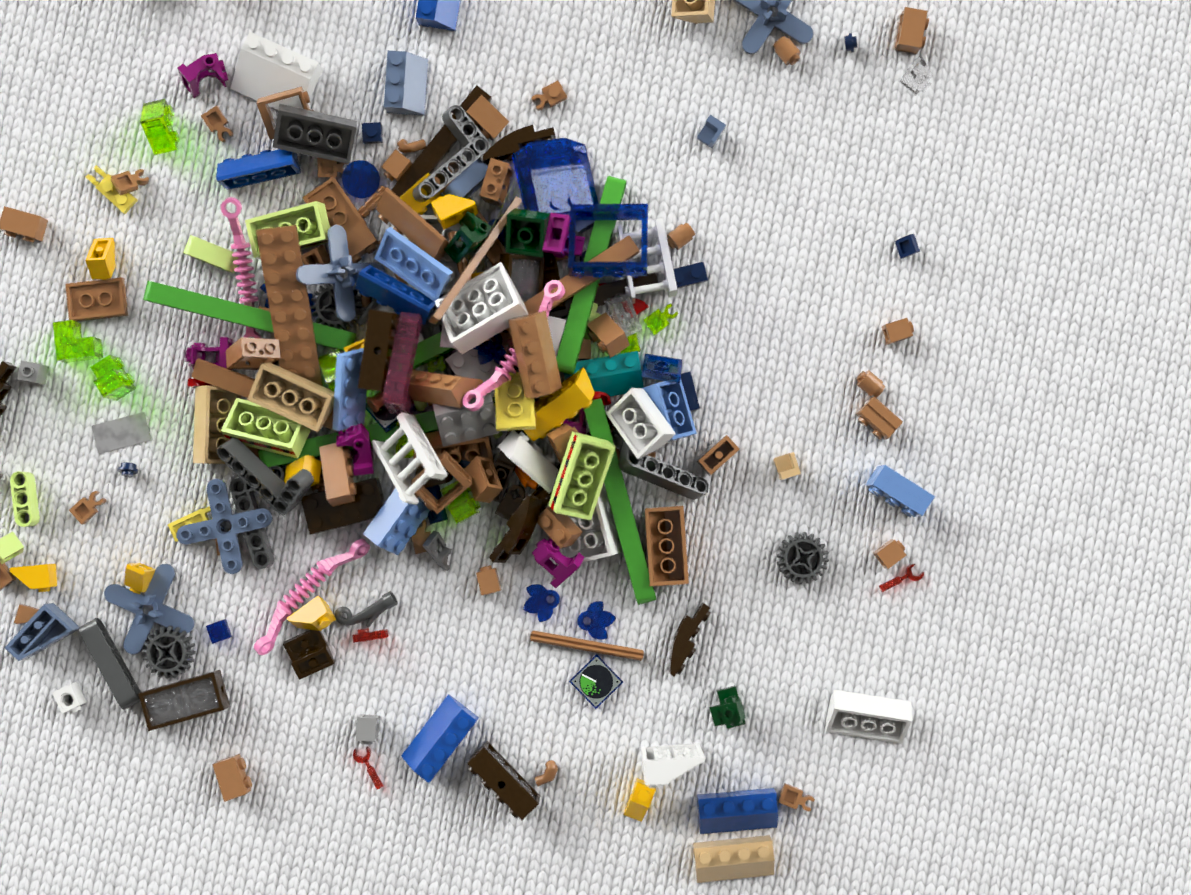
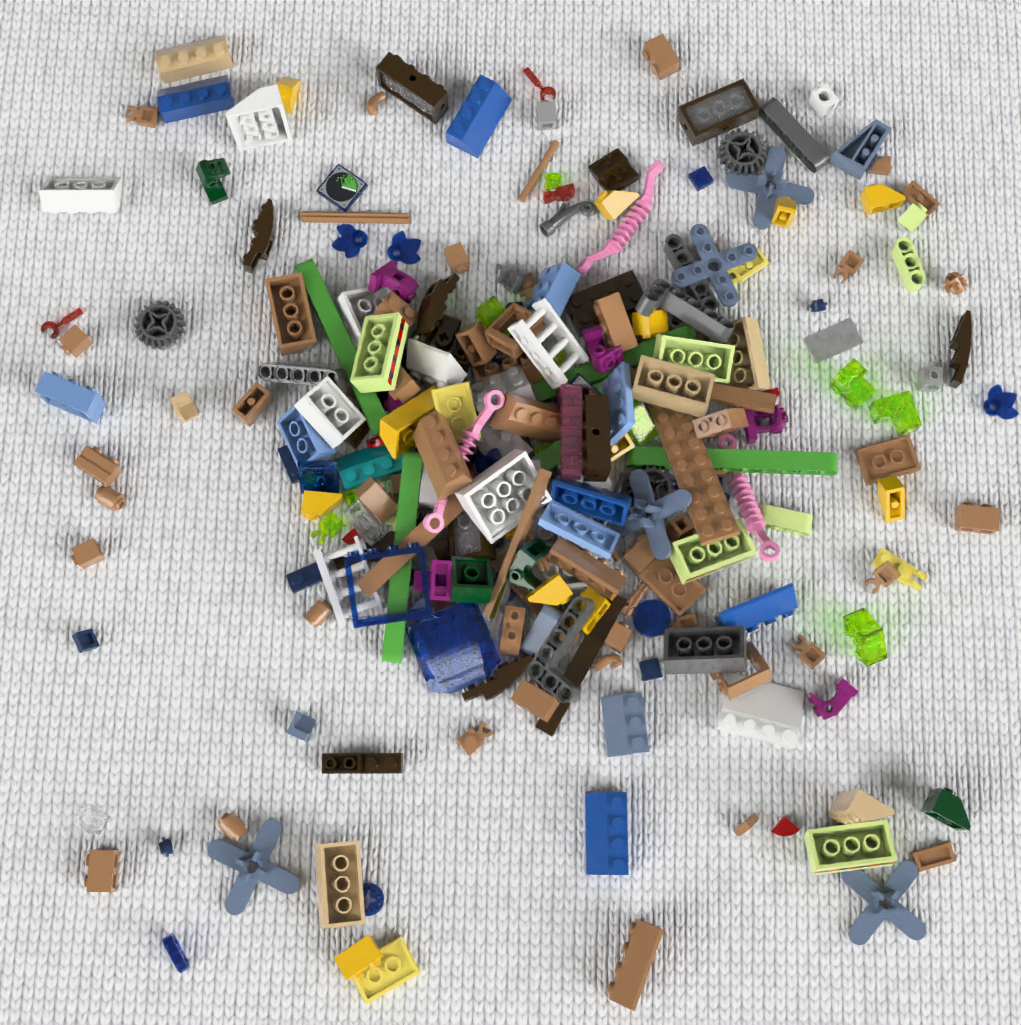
camera: 165 degrees right, 10 degrees down
(369, 652) = (552, 177): none -> clear neon green plate
(387, 667) = (536, 174): none -> medium nougat bar
(657, 88) = (362, 763): none -> dark brown slope
(665, 344) = (319, 504): none -> yellow slope

